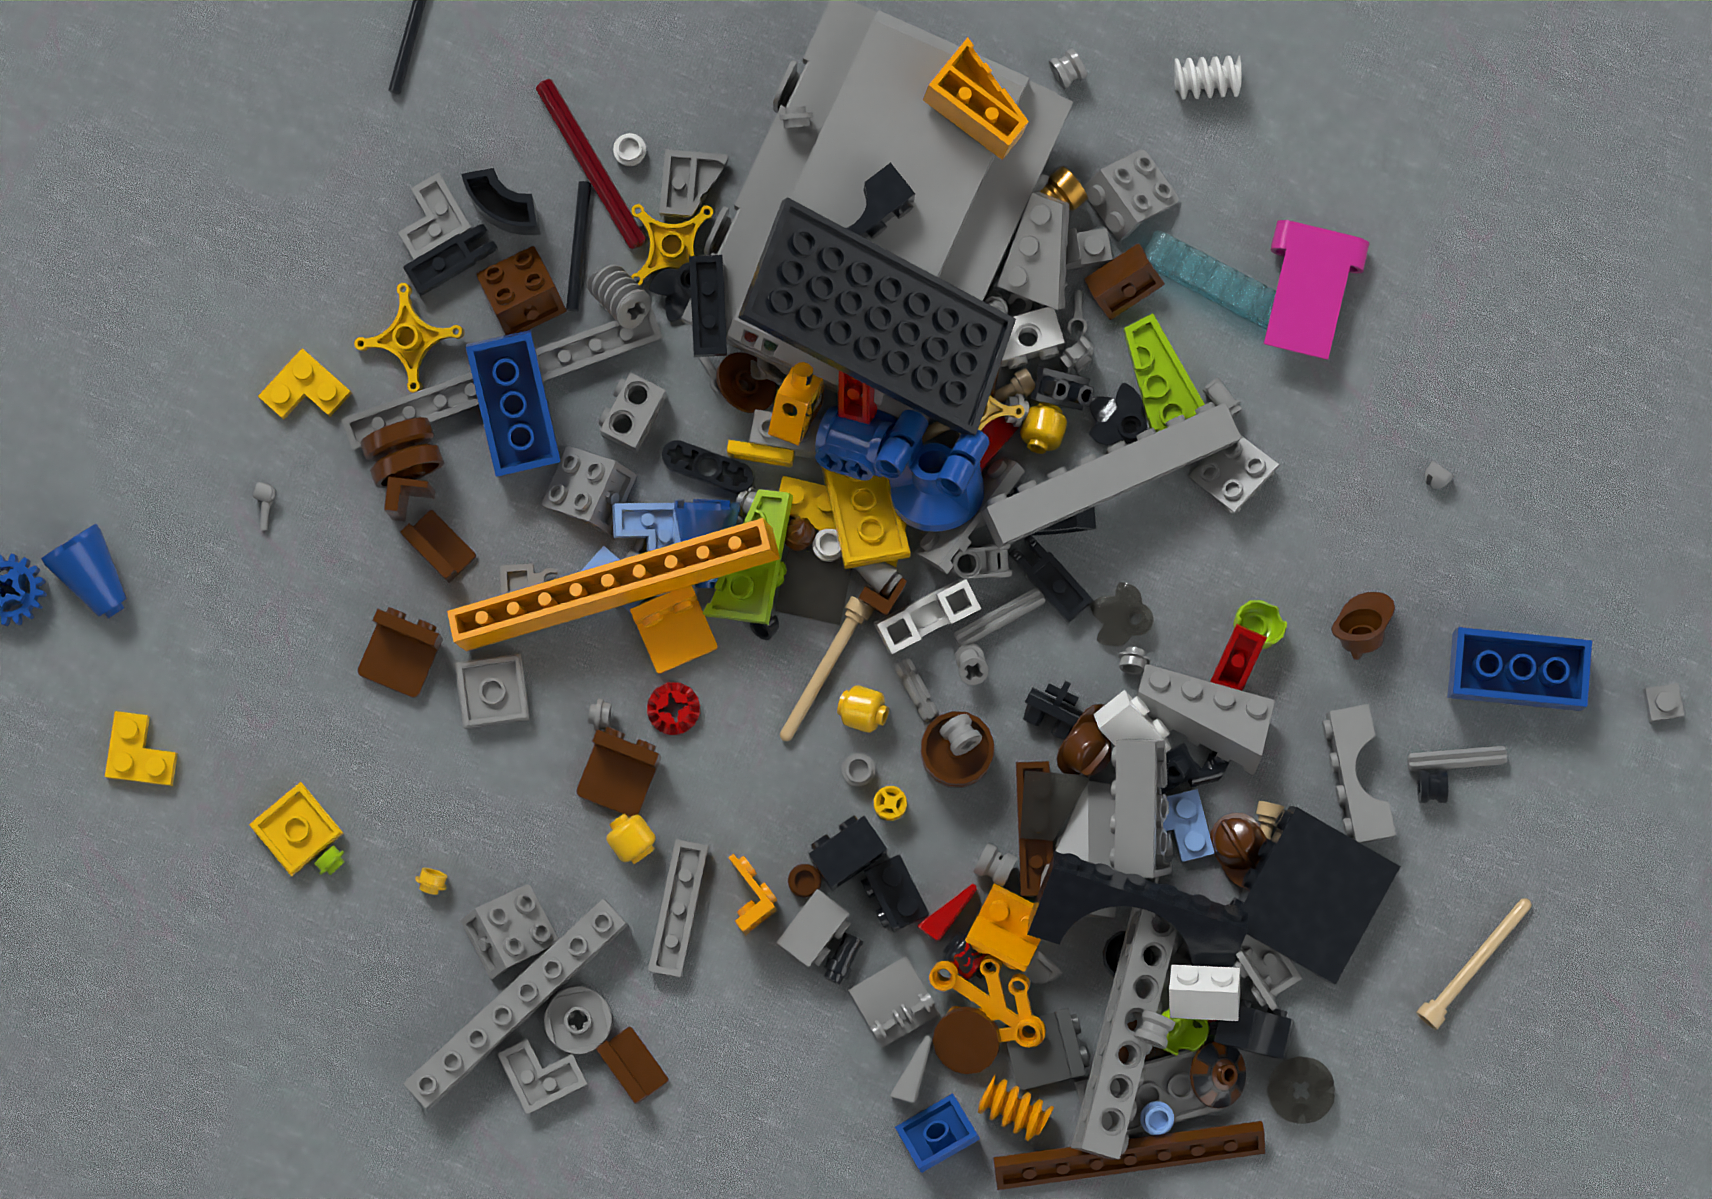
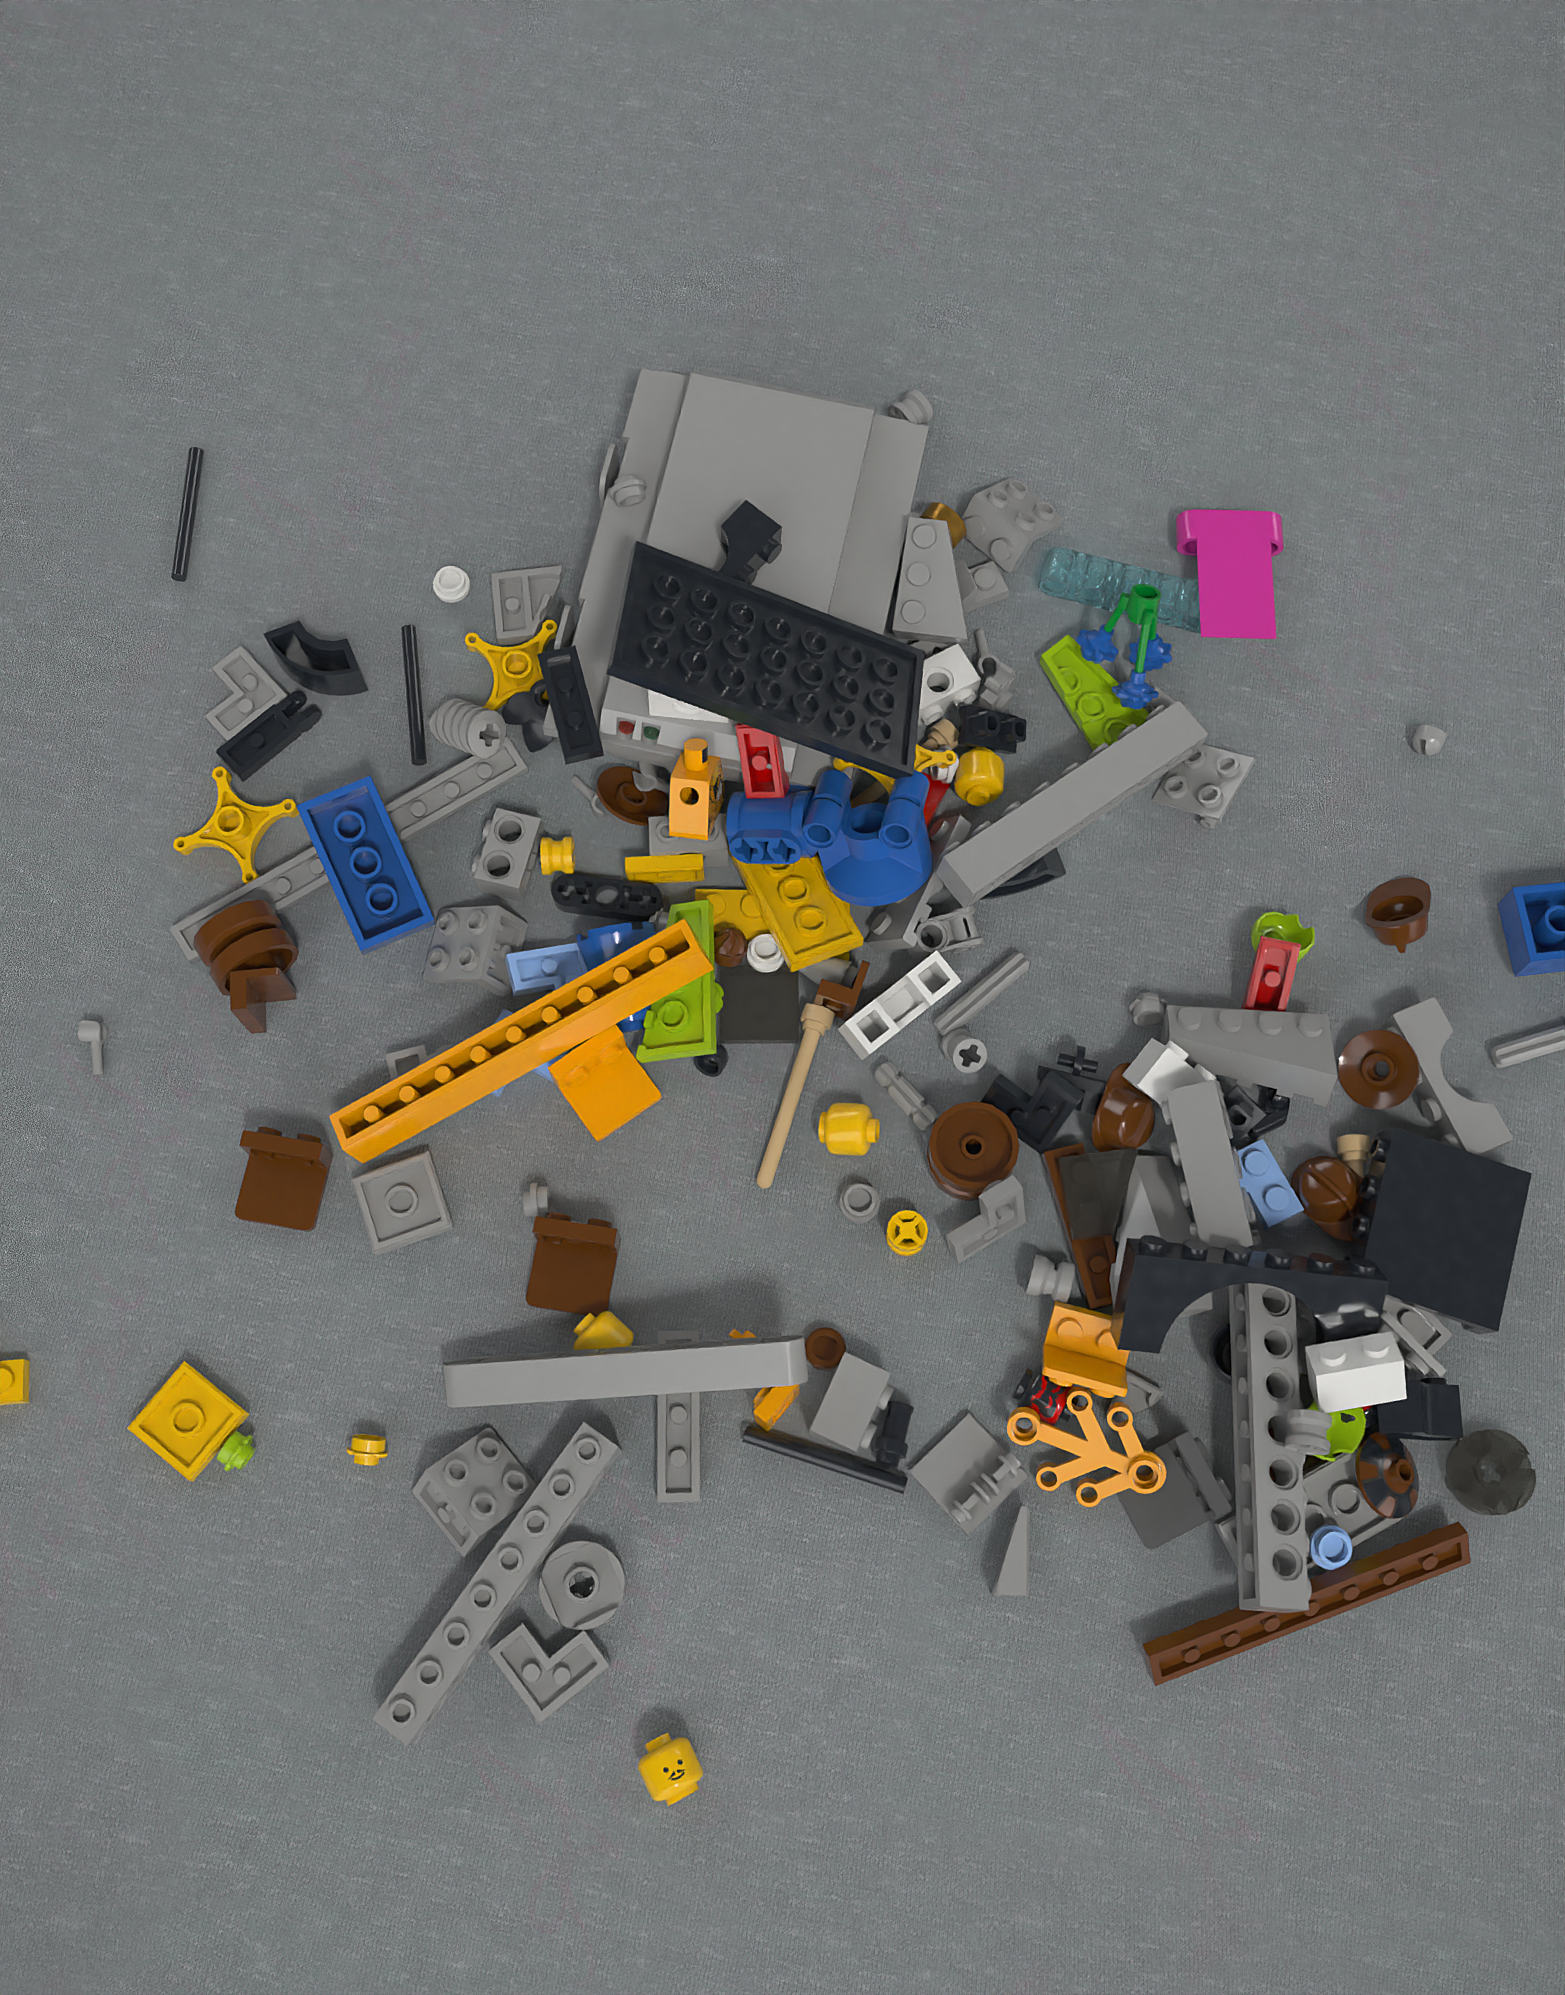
camera: 15 degrees left, 10 degrees down
(303, 378) = (122, 896): yellow plate -> none
(439, 545) = (309, 1049): reddish brown panel -> none
(521, 291) = (358, 748): reddish brown bracket -> none
(590, 163) = (411, 607): dark red axle -> none
(617, 1168) = (670, 1769): none -> yellow head
(633, 1064) = (662, 1627): reddish brown panel -> none
(642, 867) = (626, 1371): none -> light grey beam
(673, 422) = (557, 855): none -> yellow wheel
(686, 717) = (616, 1195): red gear -> none
(784, 966) = (825, 1459): none -> black bar
(847, 852) = (871, 1299): black brick -> none
(895, 894) = (937, 1340): black bracket -> none
(937, 1133) = (1064, 1630): blue slope -> none
(941, 920) = (1001, 1362): red slope -> none
(960, 734) = (975, 1127): light grey wheel -> none
(966, 804) = (1001, 1213): none -> light grey plate
(966, 1040) = (1070, 1501): reddish brown tile -> none
(976, 102) = (827, 425): light orange wedge -> none
(1014, 732) = (1036, 1116): none -> black plate
(1014, 1108) = (1152, 1574): light orange piece -> none
(1053, 581) = (1033, 938): black hinge -> none
(1113, 415) = (1054, 749): black plate -> none
(1116, 615) = (1115, 960): clear smoke plate -> none
(1124, 281) = (1029, 608): reddish brown panel -> none
(1207, 77) = (1061, 390): white piece -> none
(1217, 342) = (1147, 653): none -> plant
(1295, 755) = (1359, 1072): none -> reddish brown dish
(1432, 786) = (1532, 1077): black wheel -> none

